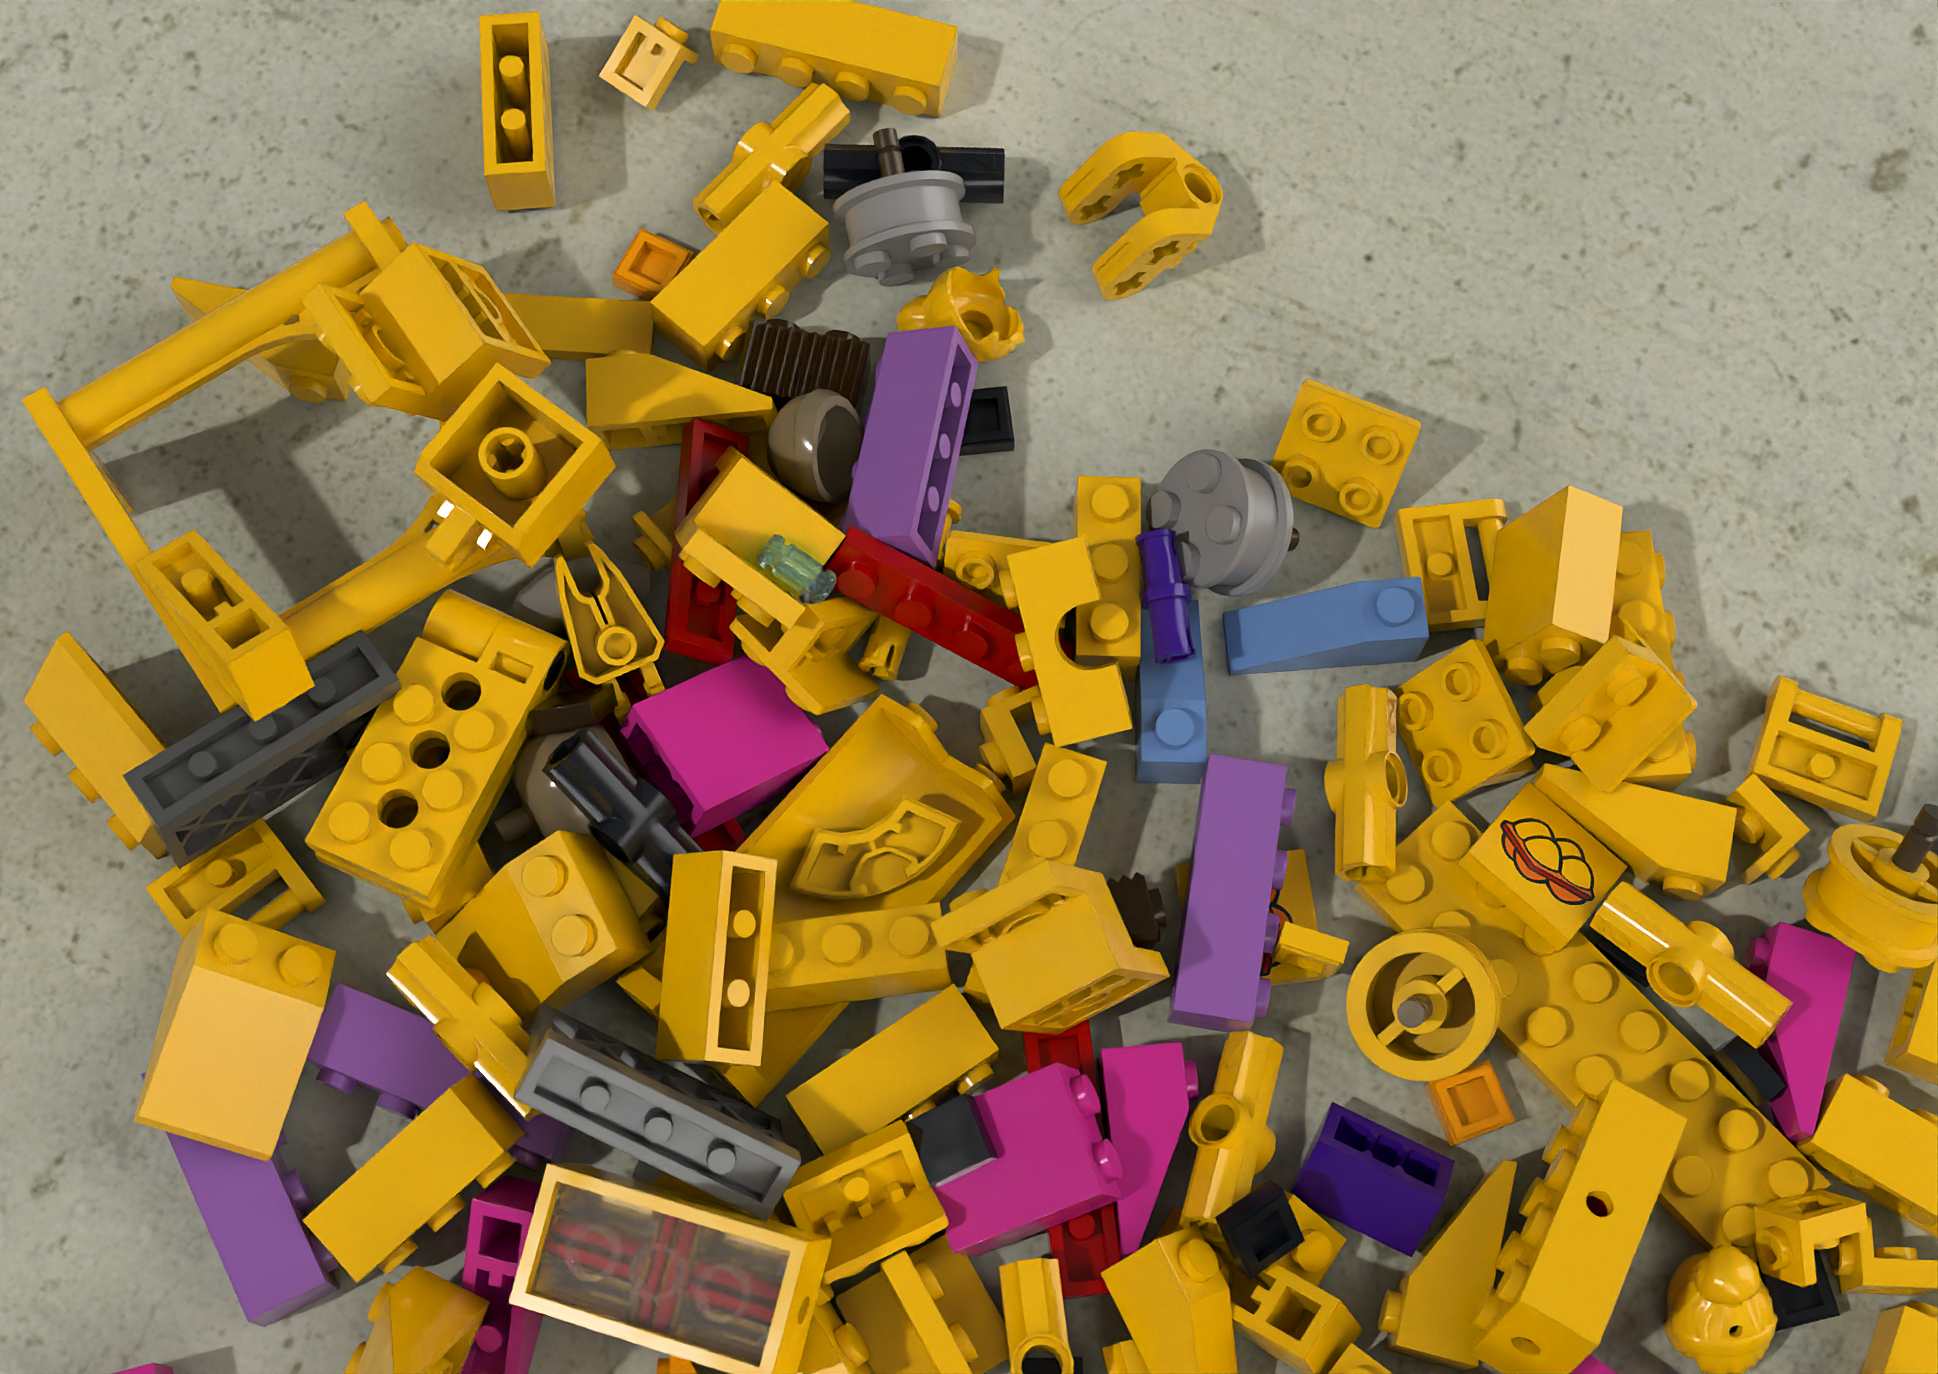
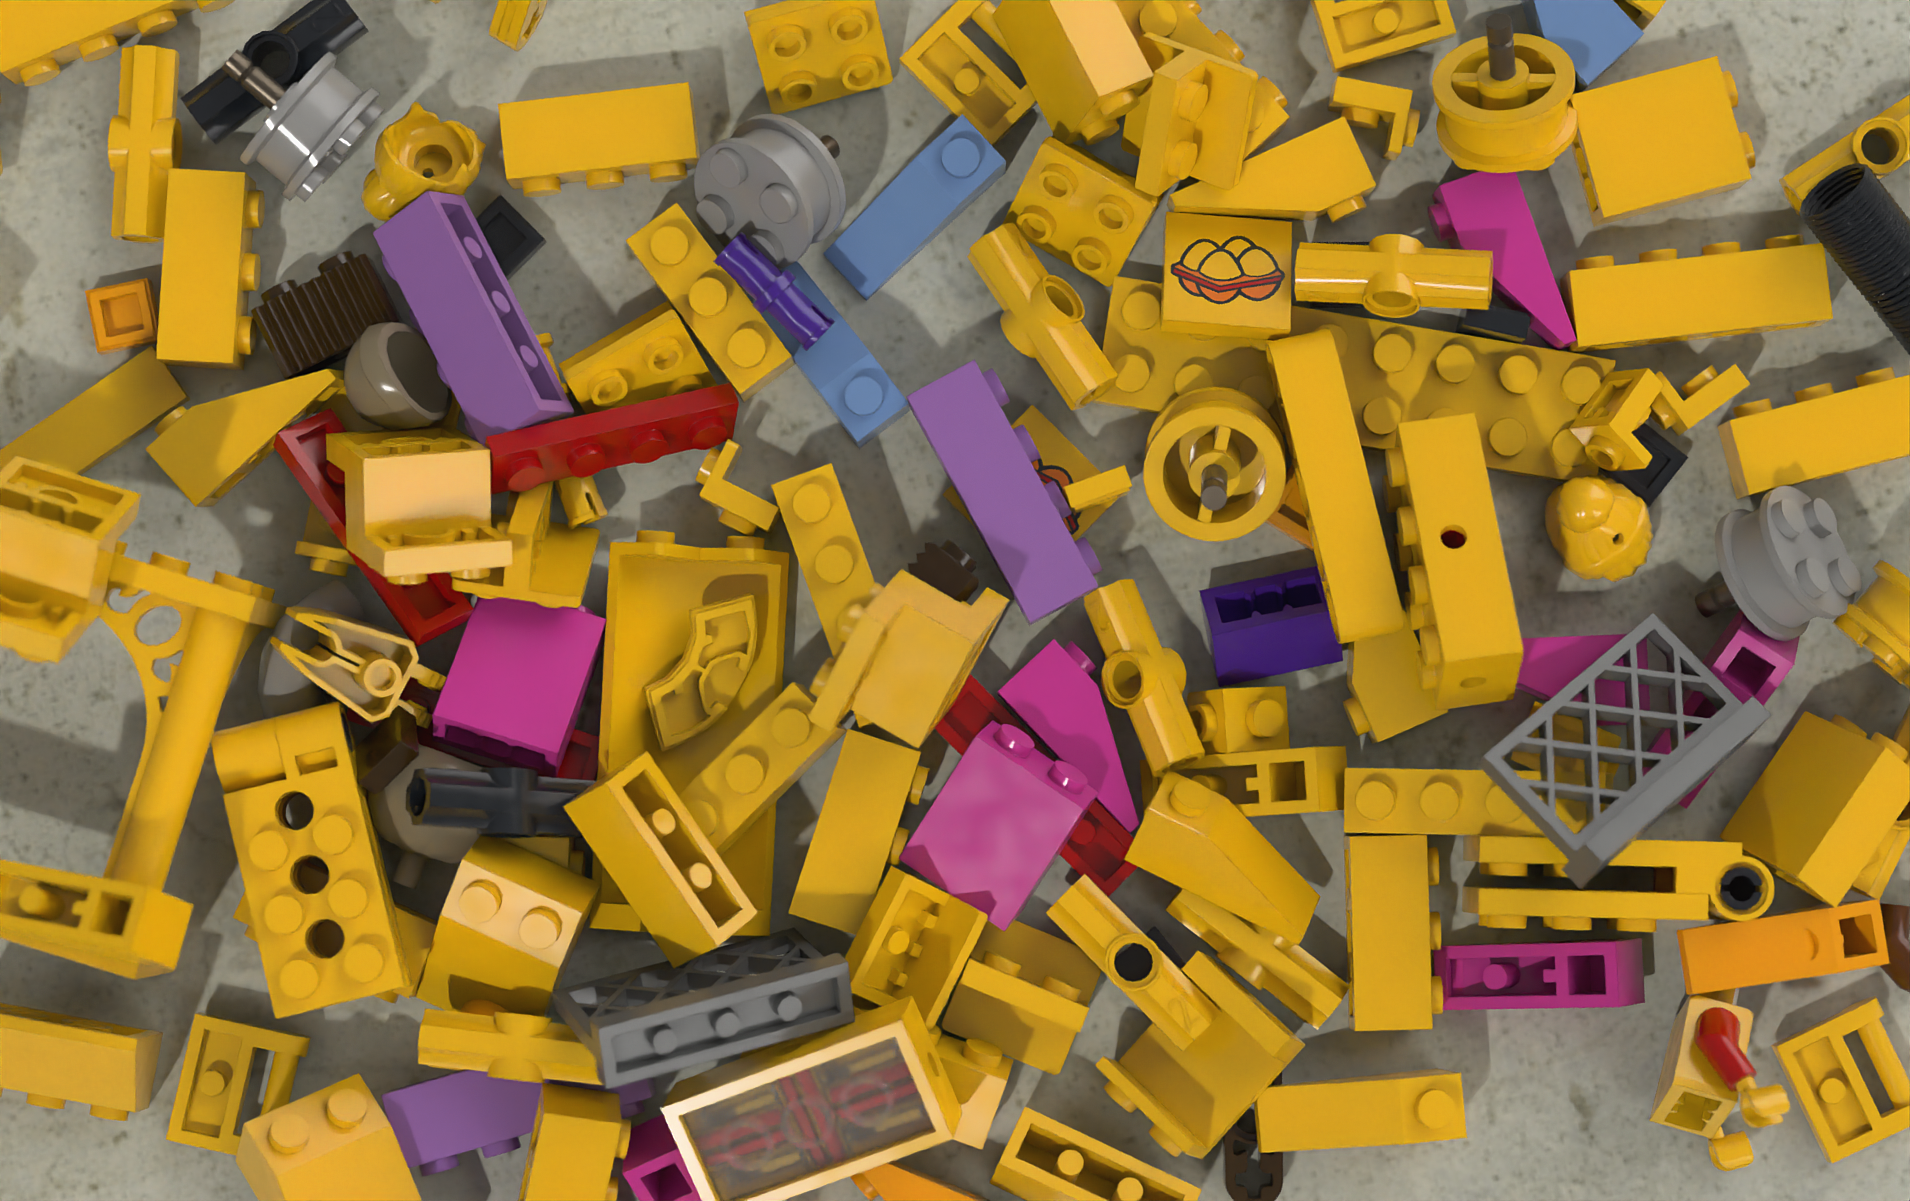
camera: 35 degrees left, 15 degrees up
(217, 769) = (173, 1005): dark grey fence -> none
(516, 508) = (174, 652): yellow hinge -> none
(797, 568) = (475, 508): clear light blue piece -> none
(951, 1140) = (940, 851): black tile -> none
(1074, 698) = (769, 432): yellow arch -> none
(1115, 397) = (599, 138): none -> yellow brick
(1260, 1229) = (1217, 738): black tile -> none
(1515, 1098) = (1334, 486): none -> yellow beam

